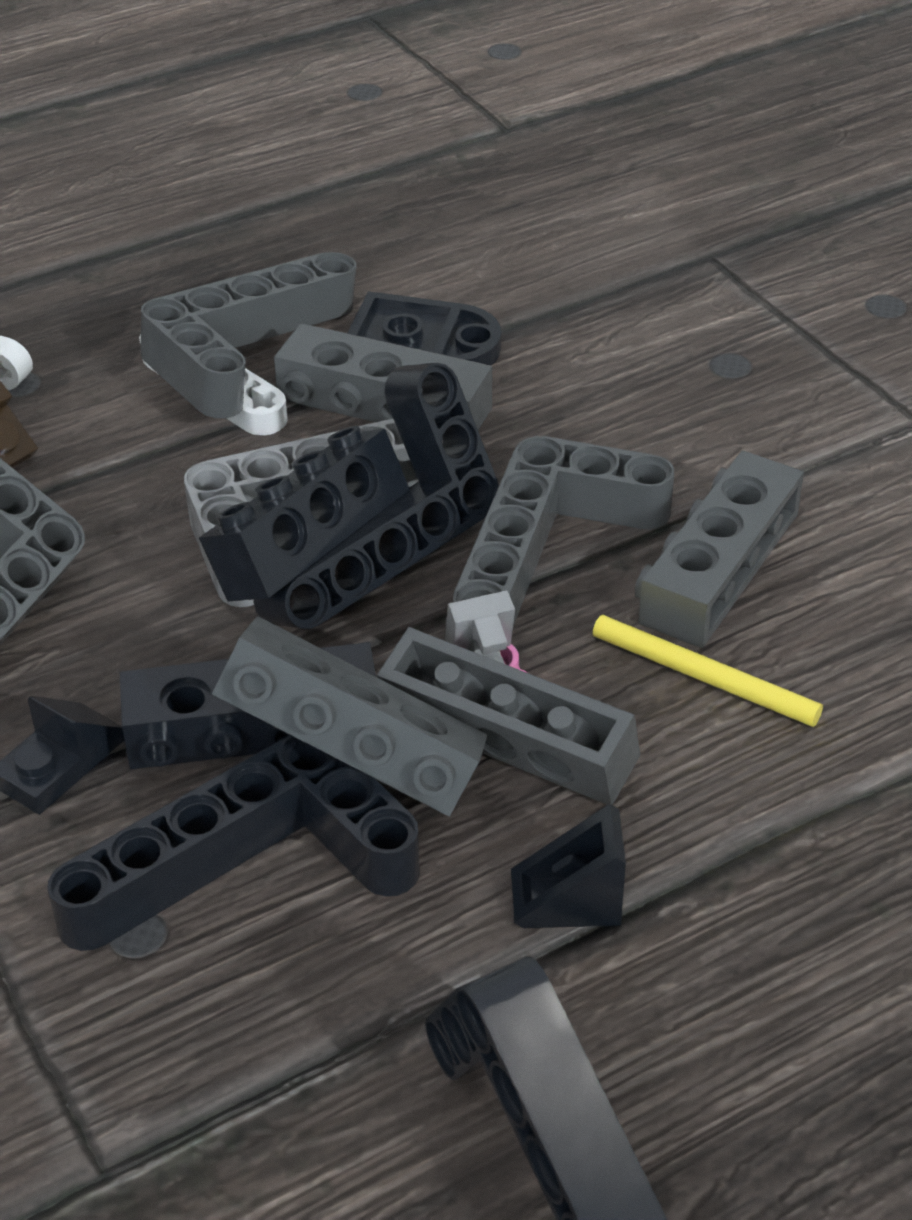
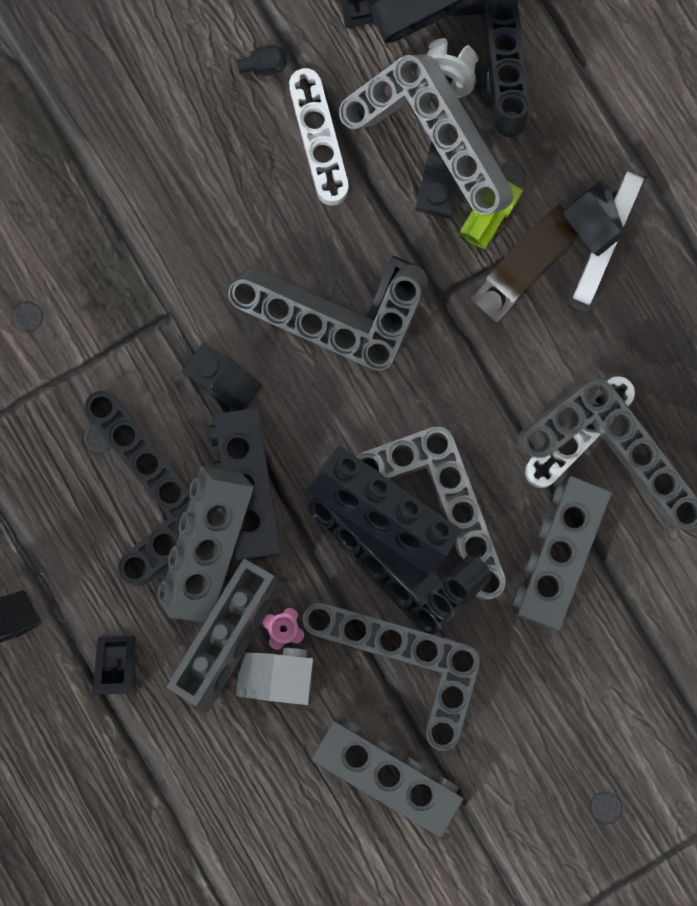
camera: 85 degrees right, 40 degrees up
(430, 326) = (634, 576): black tile -> none
(482, 624) = (286, 619): light grey tile -> none
(576, 600) = (276, 676): none -> light grey wedge
(708, 670) = (285, 758): light yellow bar -> none

